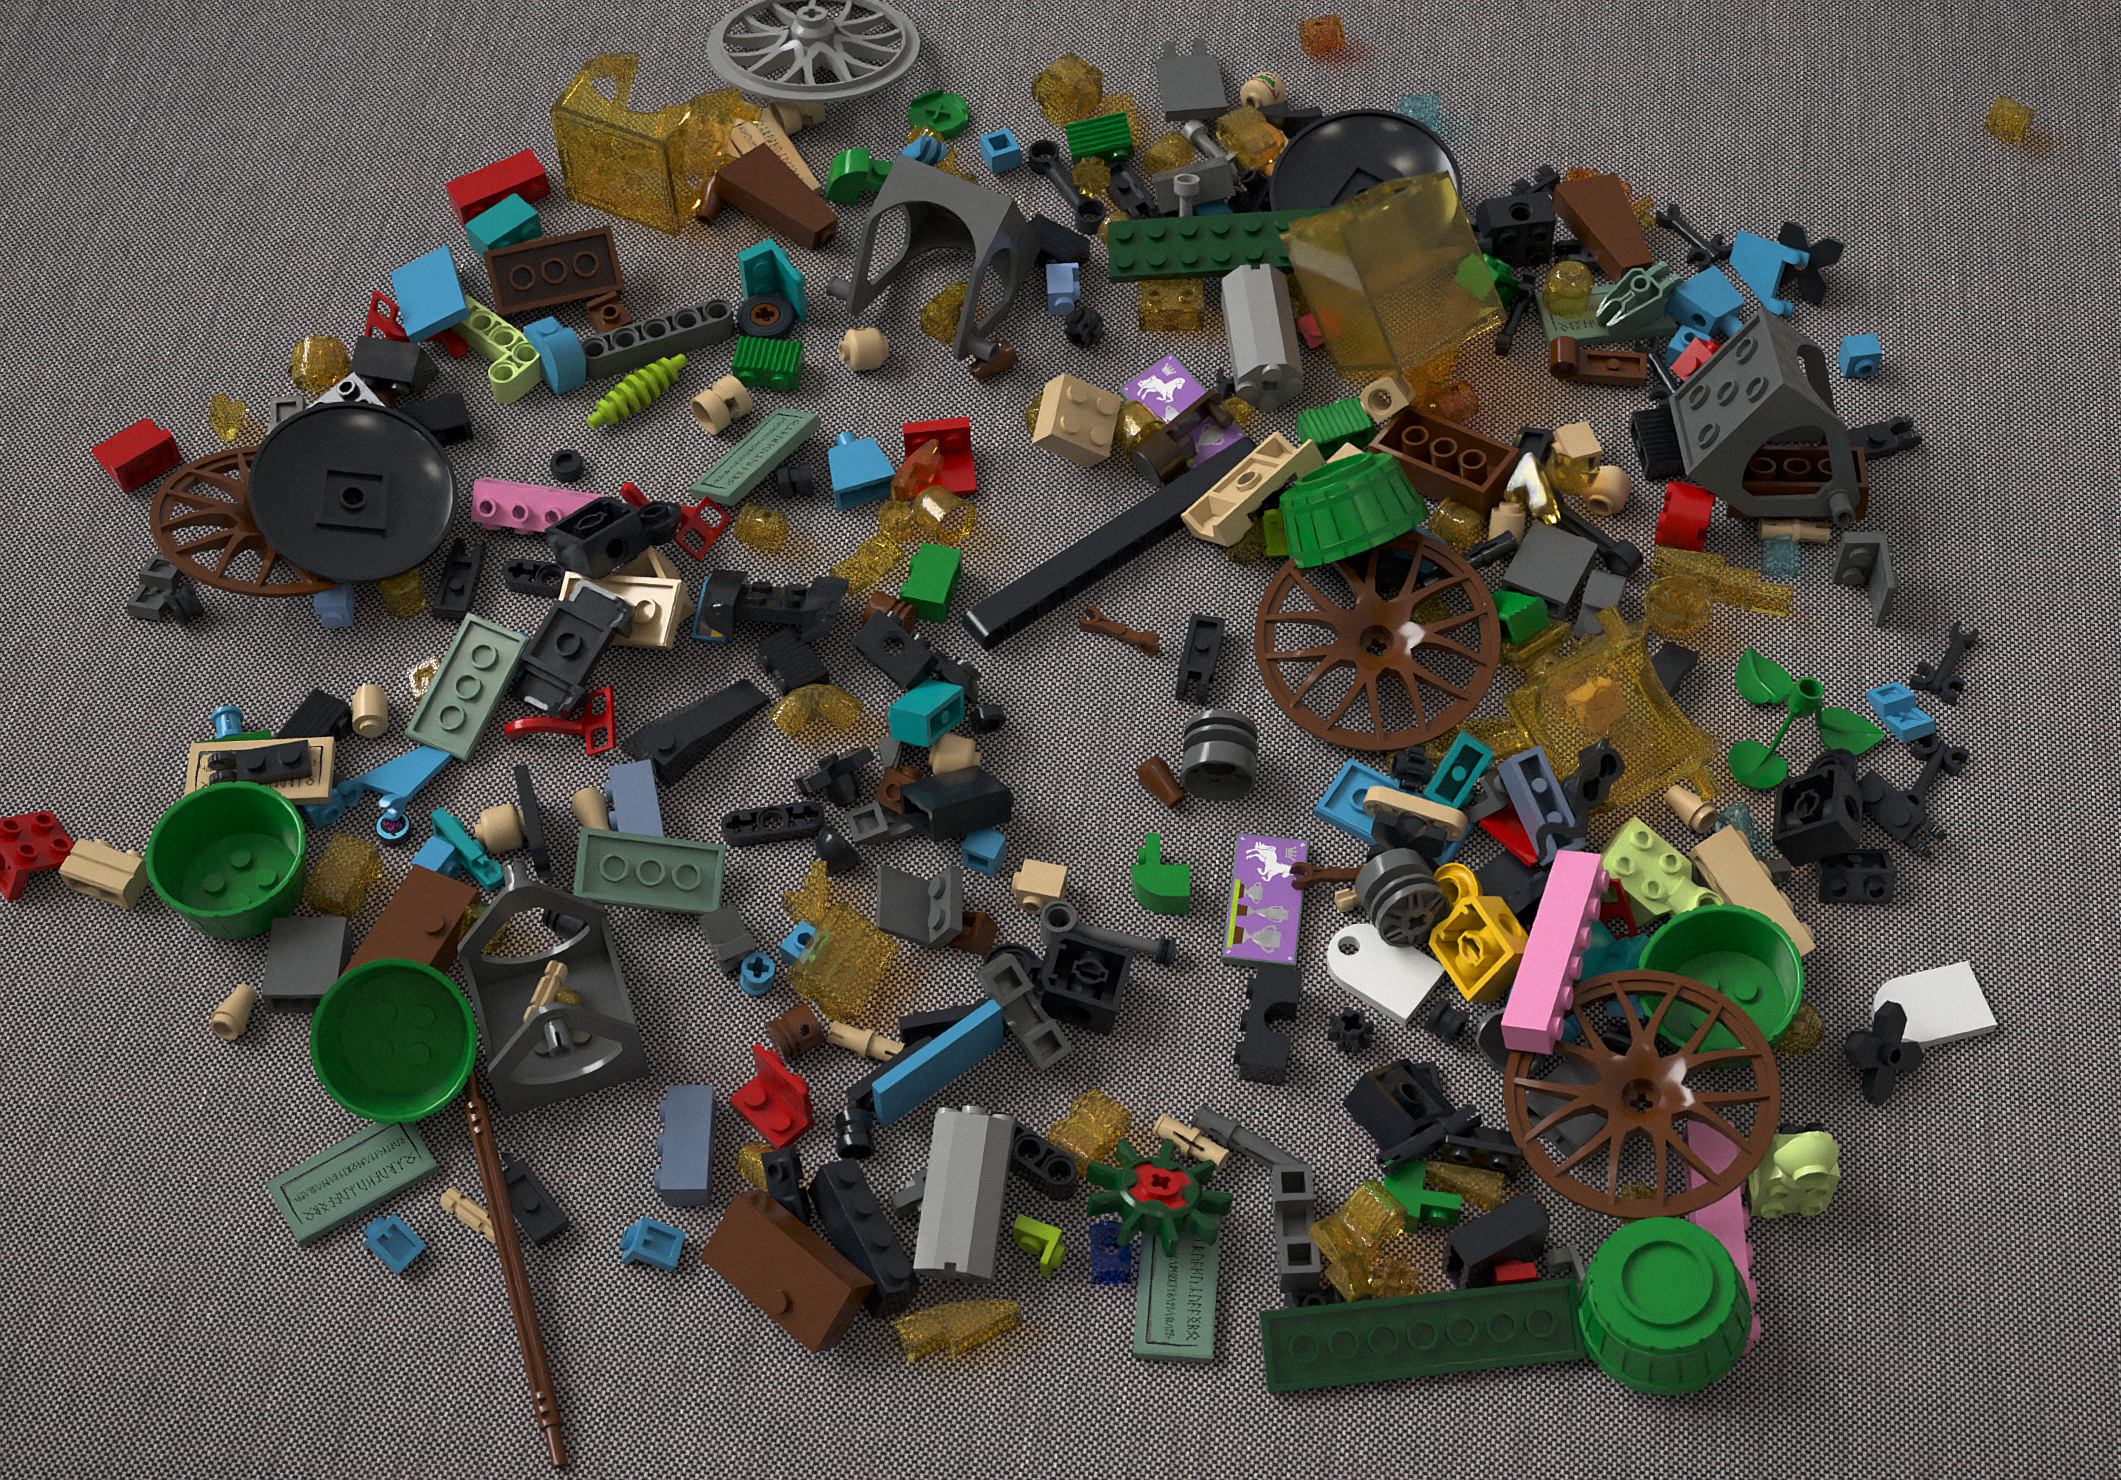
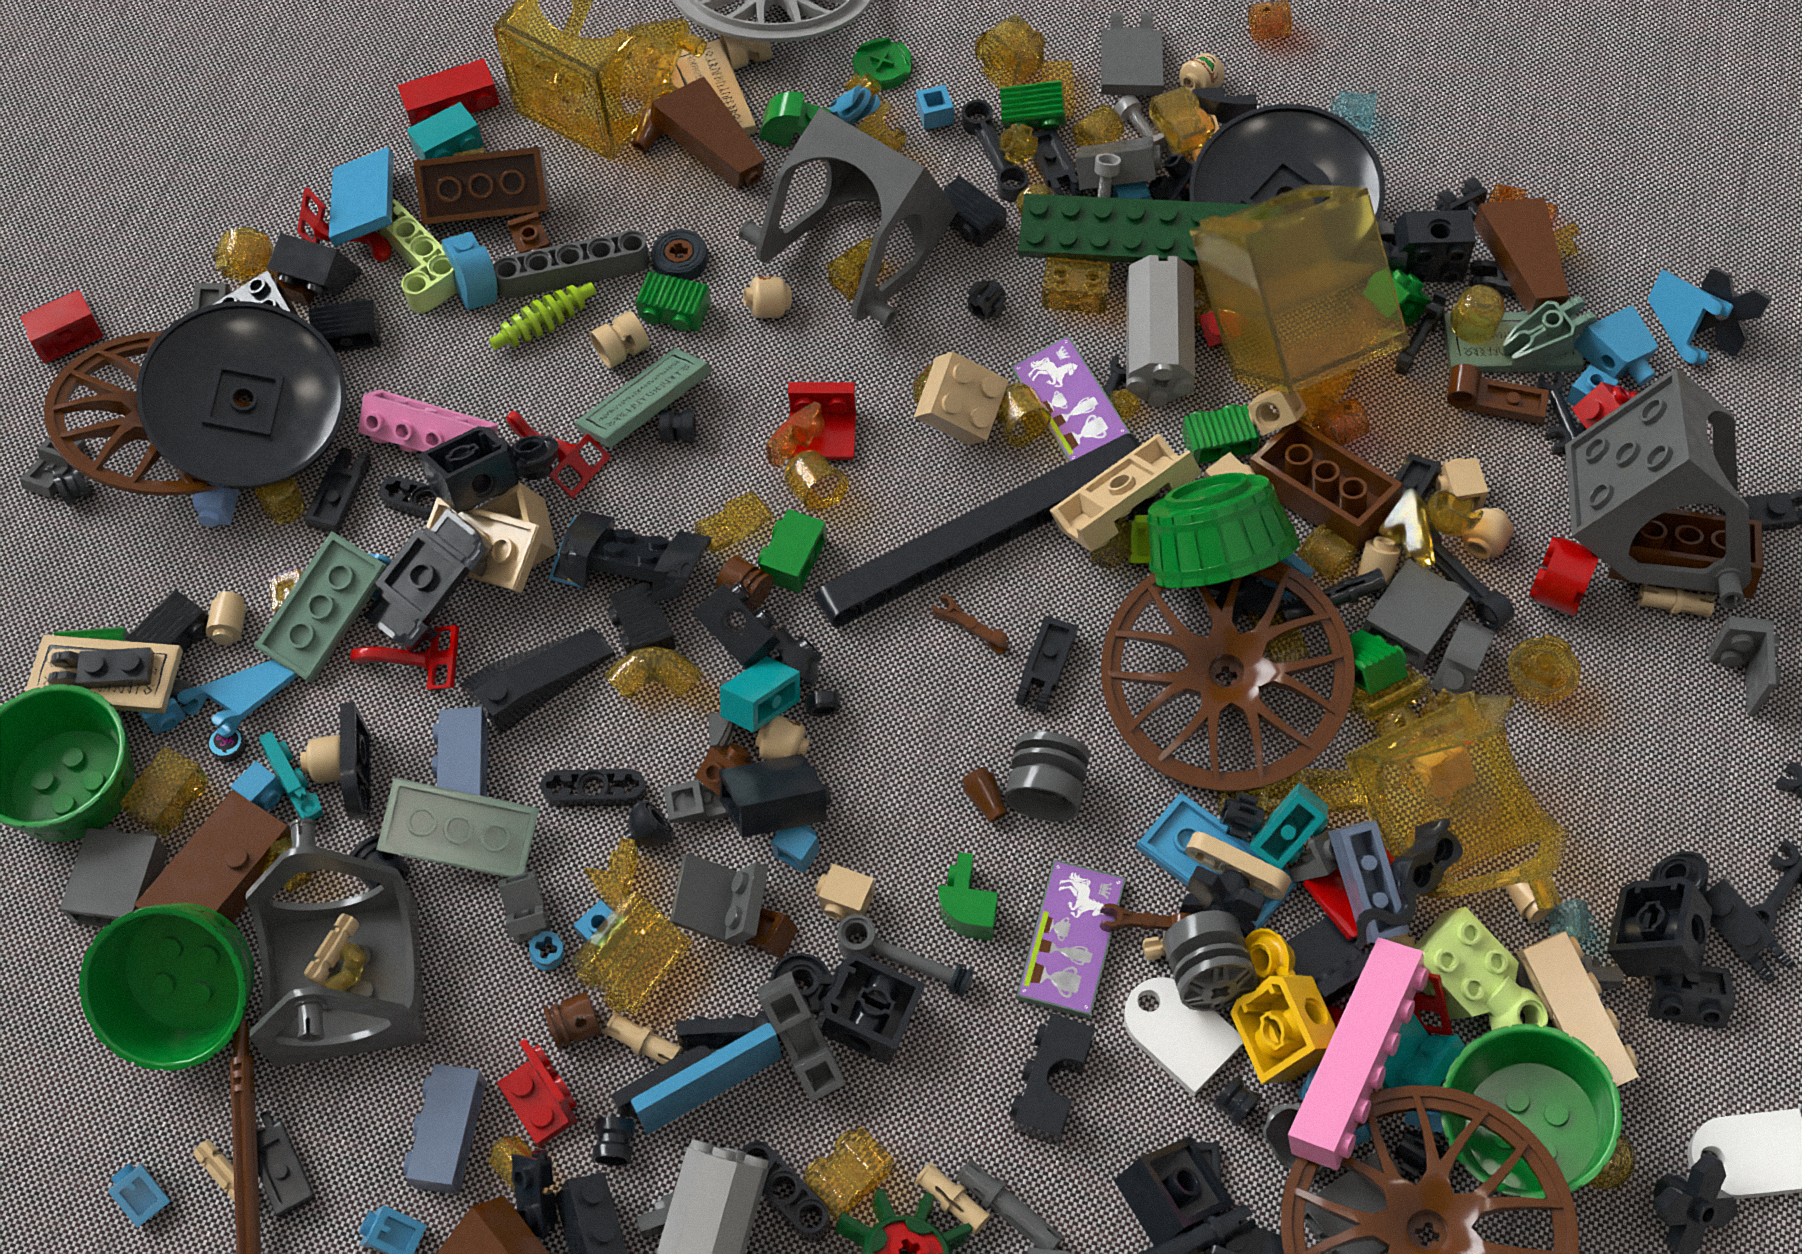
camera: 10 degrees right, 5 degrees up
(226, 416) = (152, 297): clear yellow tile -> none
(227, 728) = (90, 618): dark azure bush -> none
(233, 1014) = (34, 922): tan cone -> none
(351, 1178) = (111, 1117): sand green tile -> none
(566, 465) = (462, 384): black tile -> none
(590, 808) = (418, 751): tan cone -> none
(761, 527) = (635, 472): clear yellow piece -> none
(769, 270) = (685, 207): teal bracket -> none
(836, 776) = (661, 747): black plant -> none
(858, 471) = (739, 424): dark azure torso -> none
(892, 513) = (764, 473): clear yellow wheel -> none
(1004, 361) = (901, 325): reddish brown cone -> none
(1062, 287) = (972, 255): light blue brick -> none
(1159, 455) = (1036, 439): dark brown piece -> none
(1350, 1031) = (1137, 1108): black gear -> none
(1656, 443) = (1545, 488): black brick -> none
(1672, 664) = (1527, 734): black slope -> none
(1702, 250) = (1623, 286): black bar -> none
(1727, 584) = (1594, 650): clear yellow slope -> none
(1763, 681) = (1621, 762): green plant -> none
(1780, 557) = (1658, 627): clear light blue tile -> none
(1859, 355) = (1770, 417): dark azure plate -> none
(1899, 712) = (1761, 815): dark azure slope -> none

